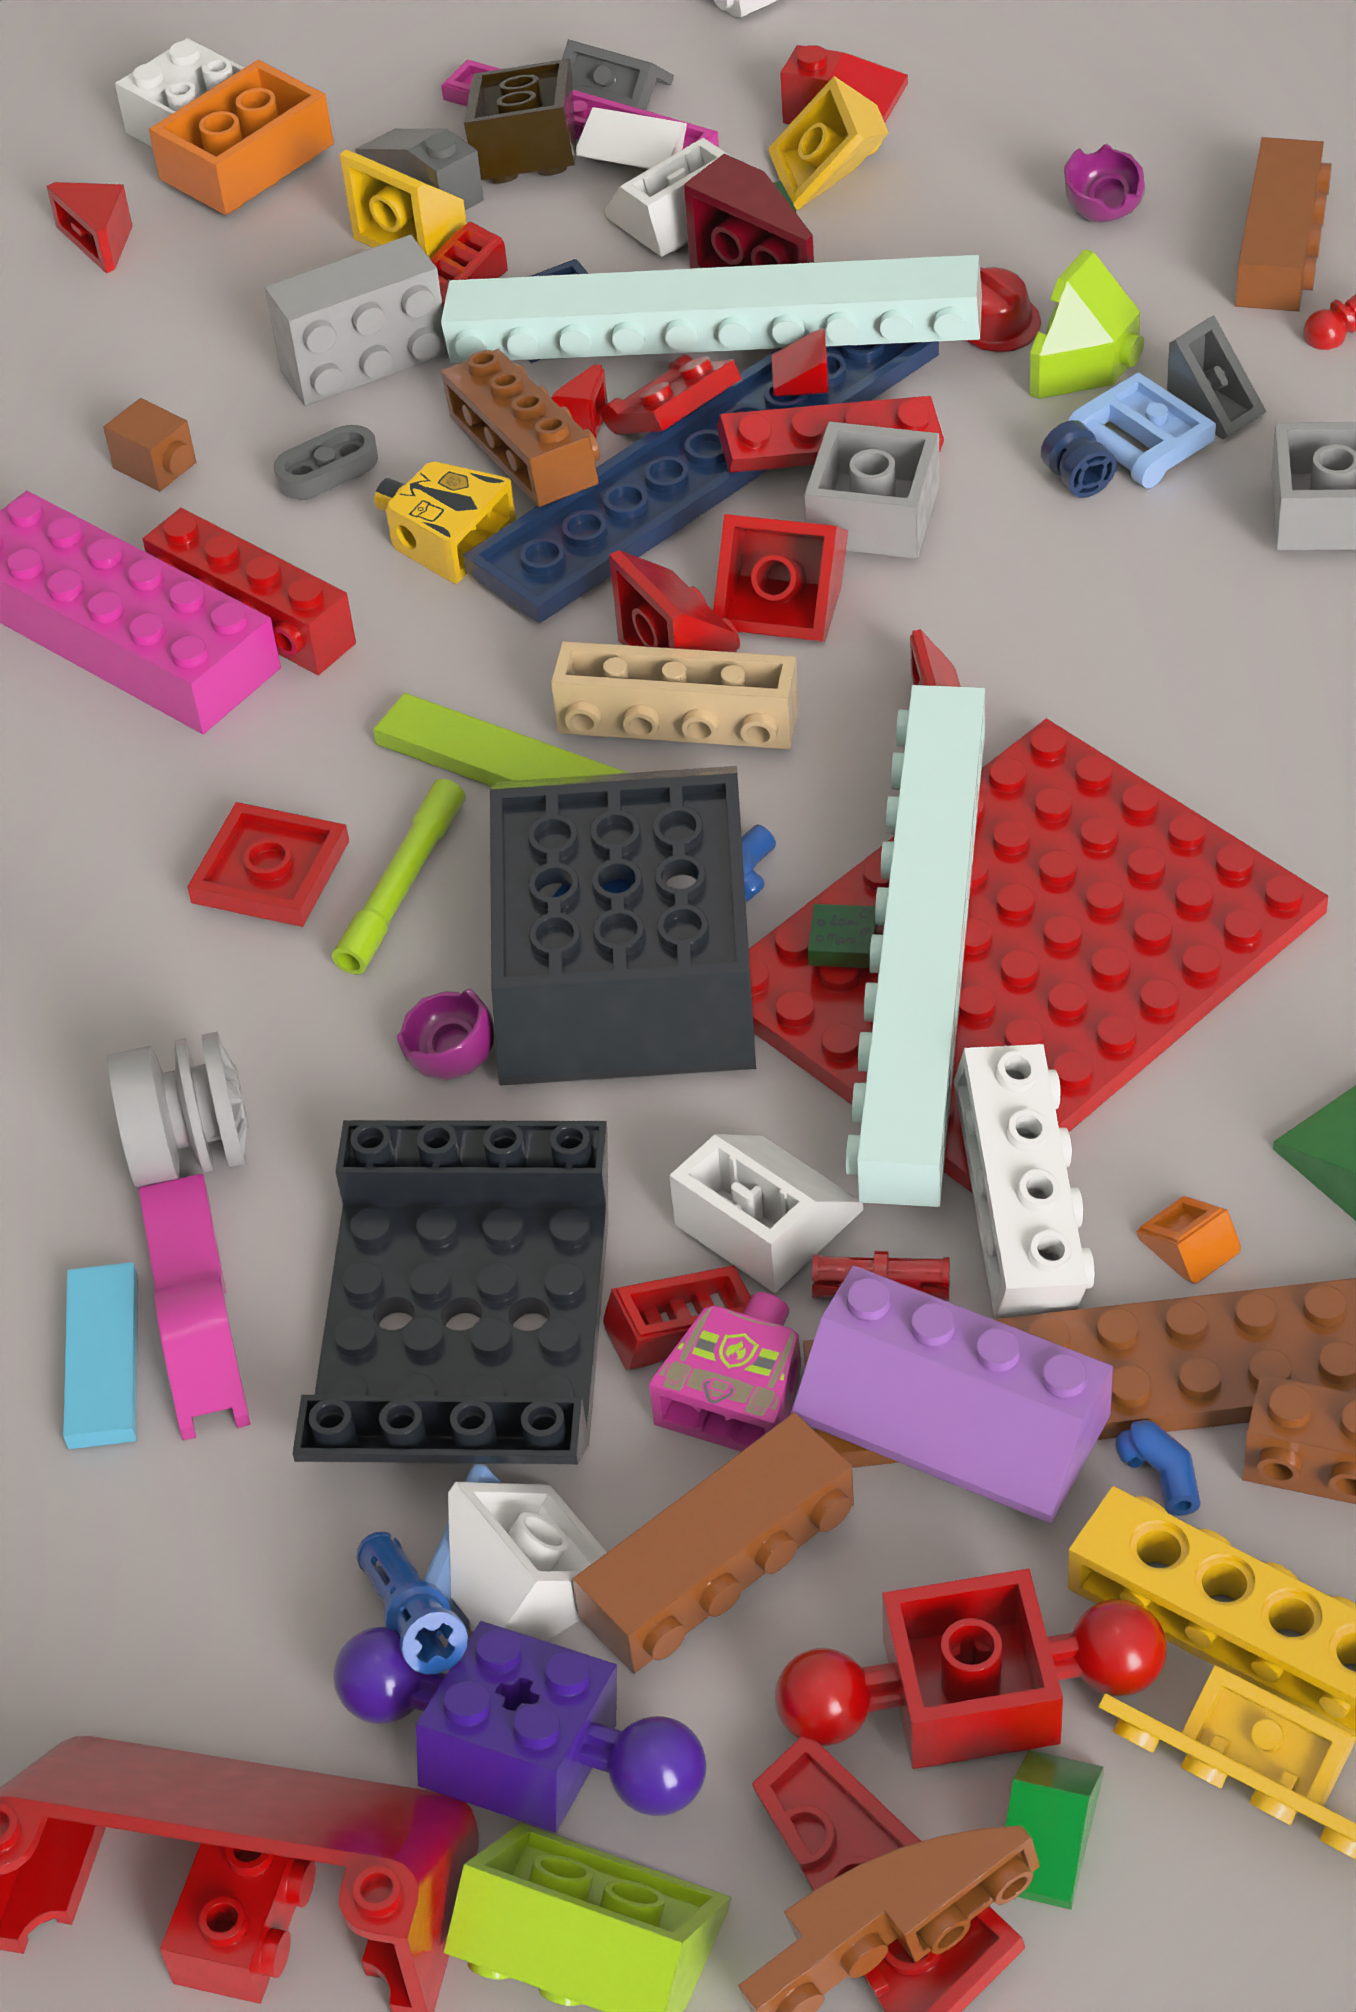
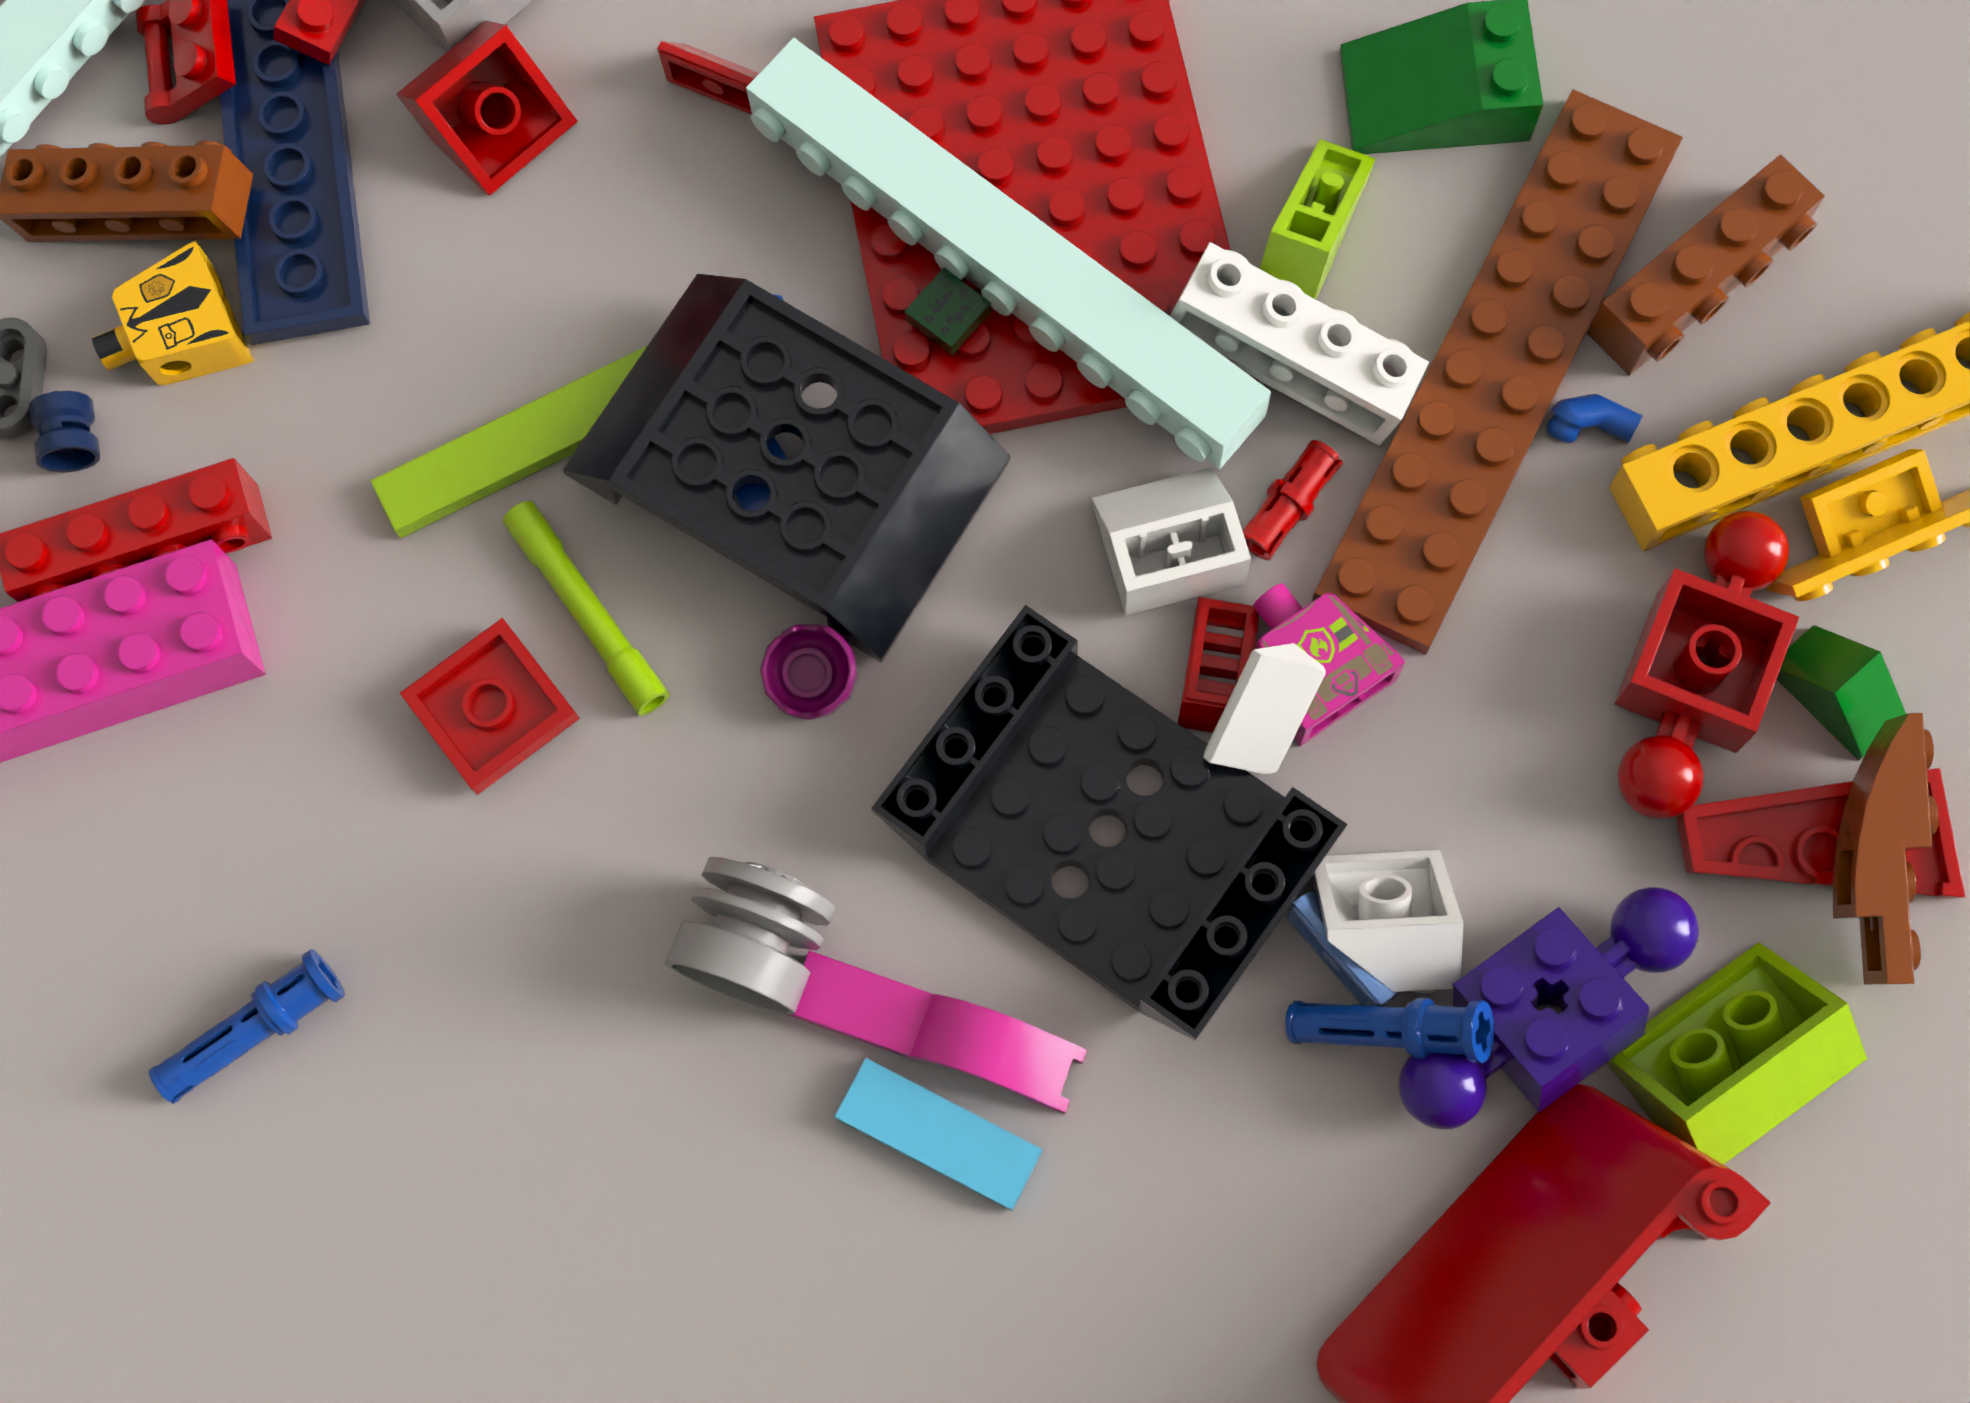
camera: 55 degrees left, 25 degrees up
(306, 510) = (64, 431): none -> dark blue wheel
(585, 398) = (127, 120): red slope -> none
(640, 1336) = (1265, 709): none -> white slope
(662, 610) = (486, 226): red slope -> none
(676, 694) = (573, 270): tan brick -> none
(714, 1543) = (1474, 768): dark orange brick -> none
(954, 1393) = (1471, 520): medium lavender slope -> none
(1158, 1141) = (1316, 217): none -> lime slope
(1191, 1237) = (1398, 264): orange slope -> none

